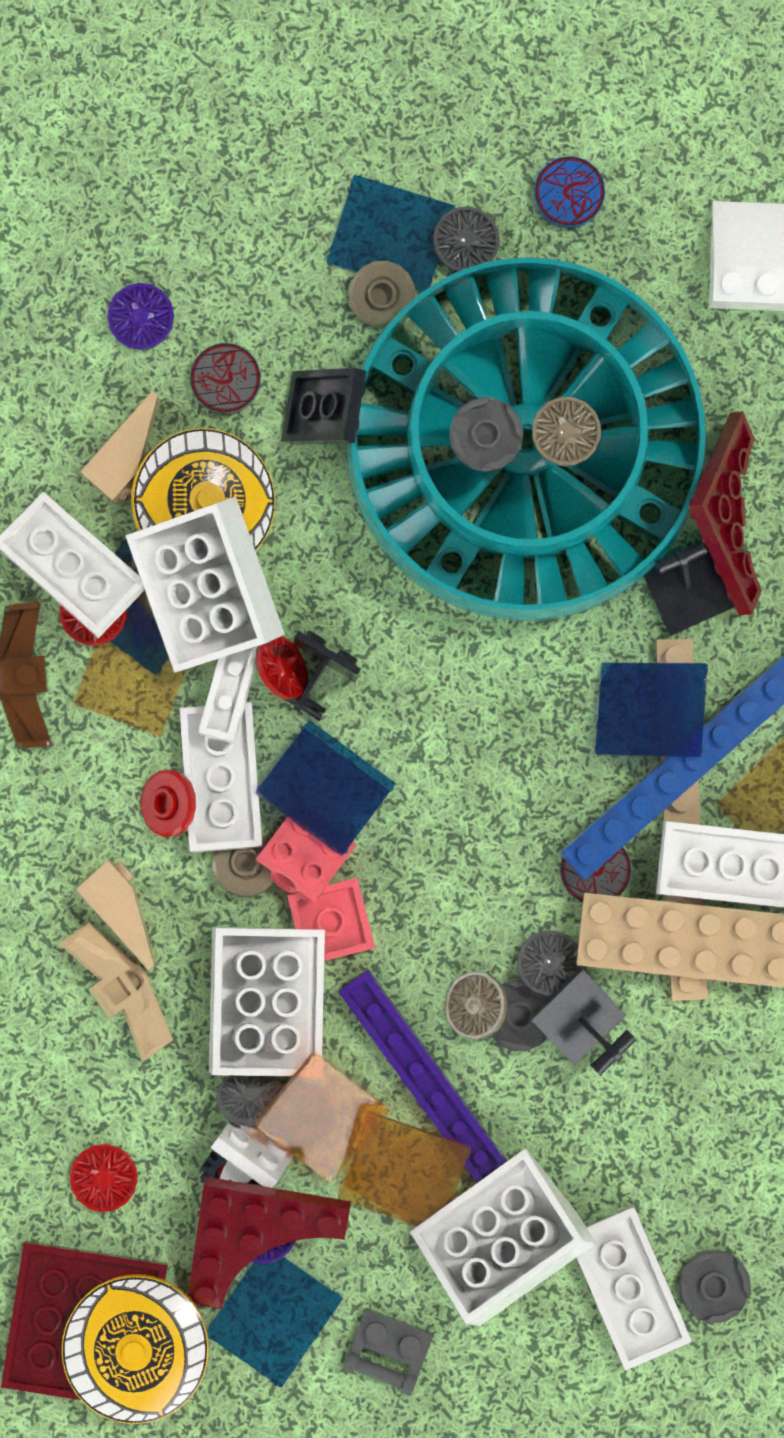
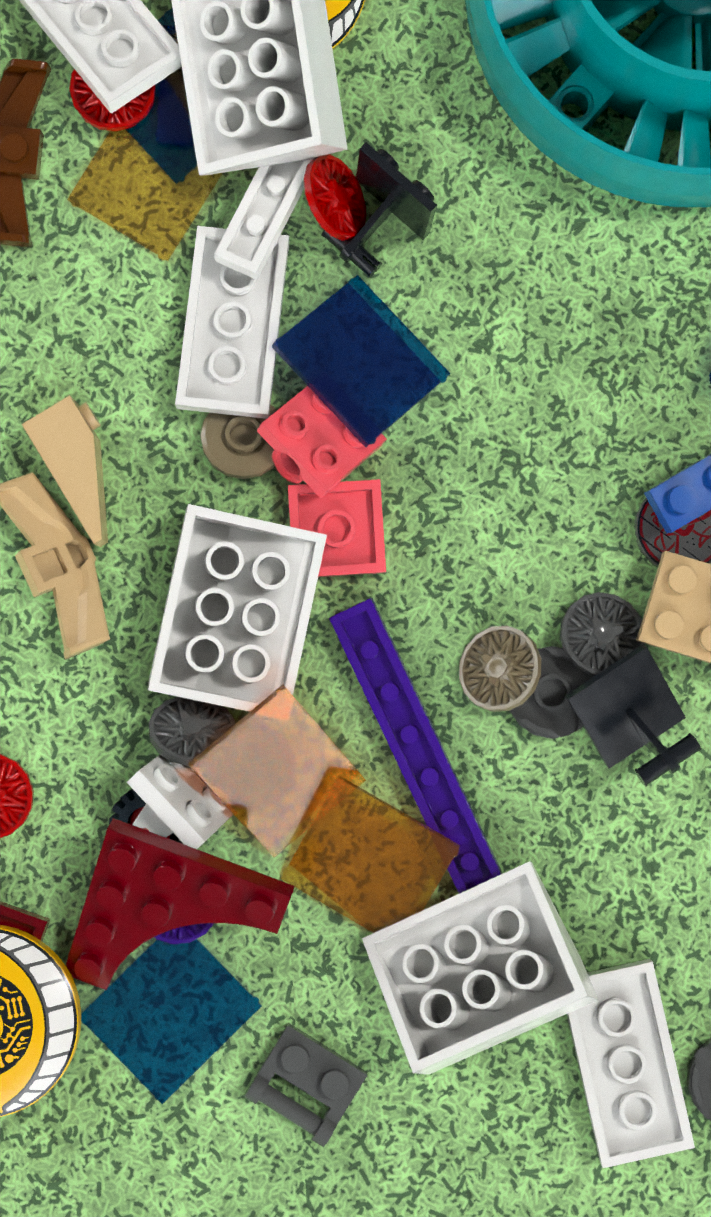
camera: 15 degrees right, 0 degrees up
(168, 803) = (160, 341): red wheel -> none

